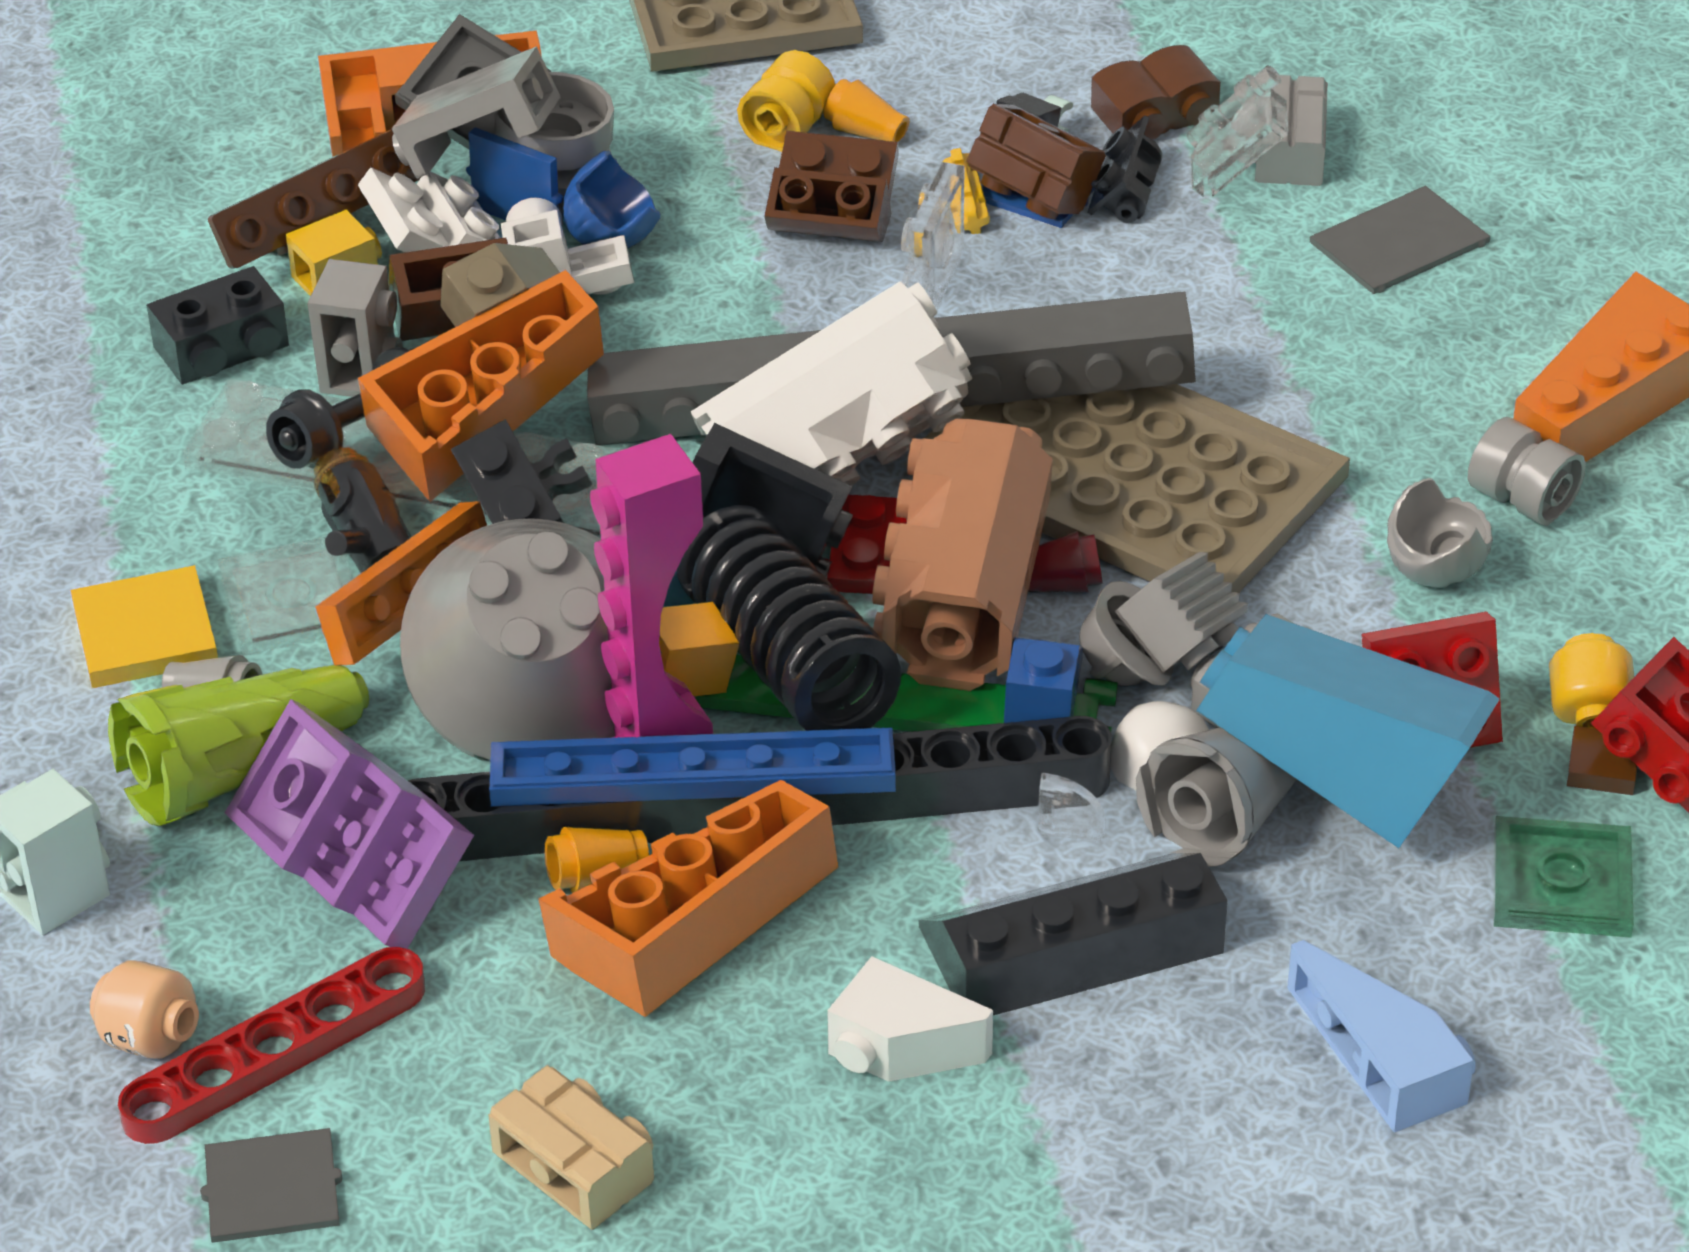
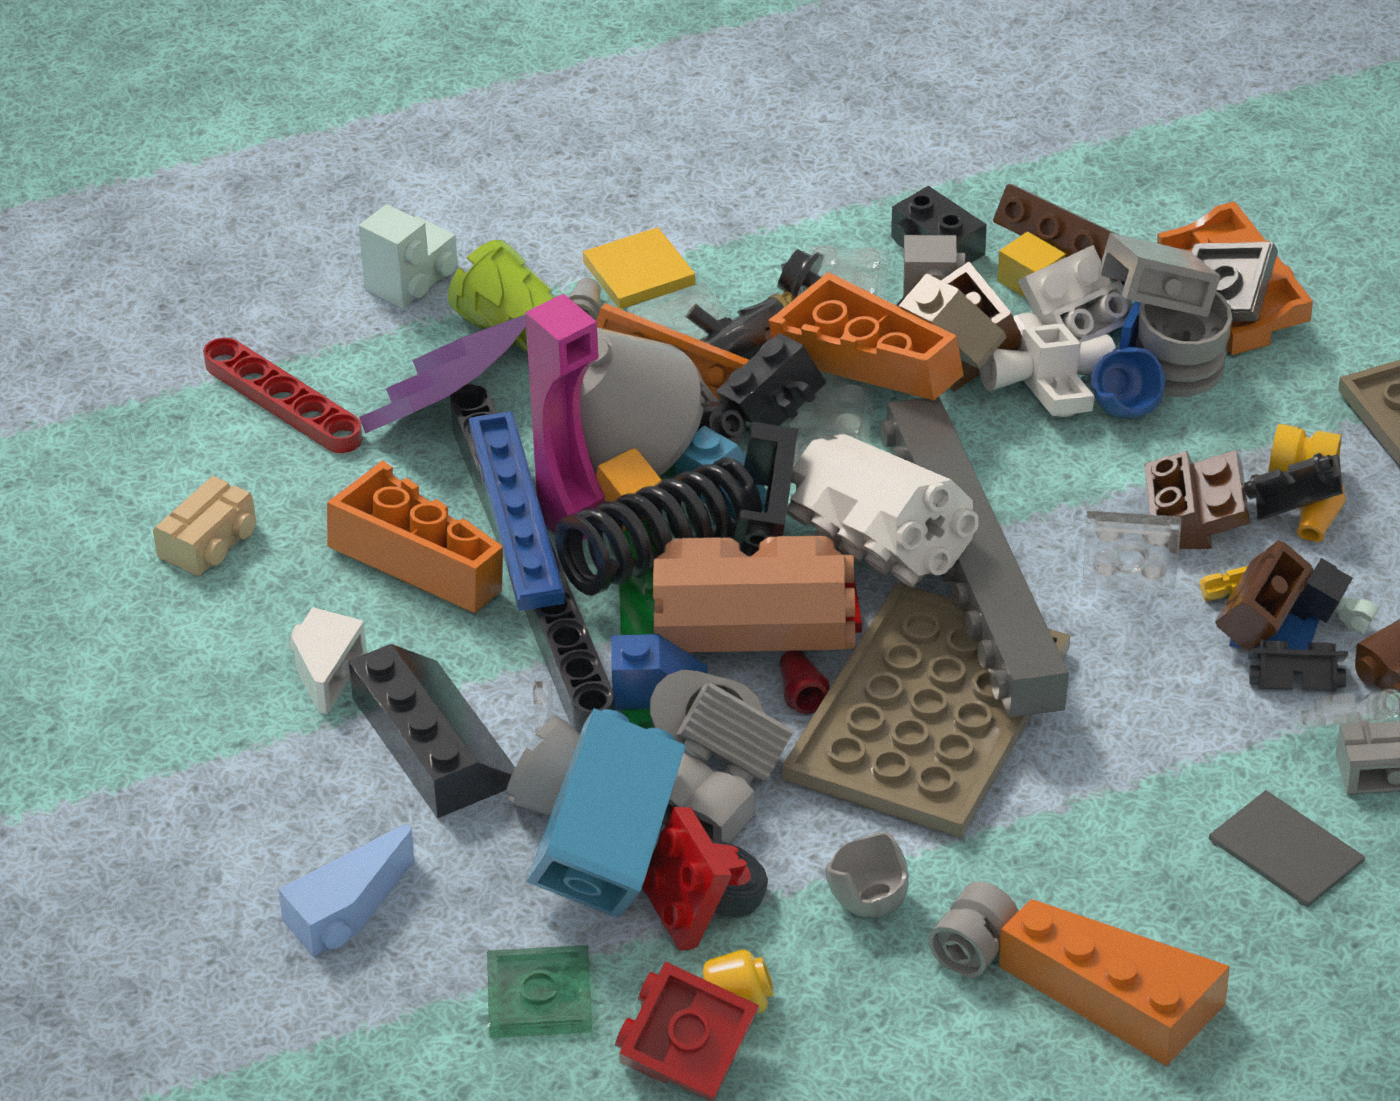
camera: 80 degrees right, 0 degrees up
(142, 1007) = (290, 331): light nougat head -> none
(271, 1185) = (176, 419): dark grey piece -> none
(584, 850) = (457, 491): light orange cone -> none
(856, 92) = (1297, 487): none -> black hinge

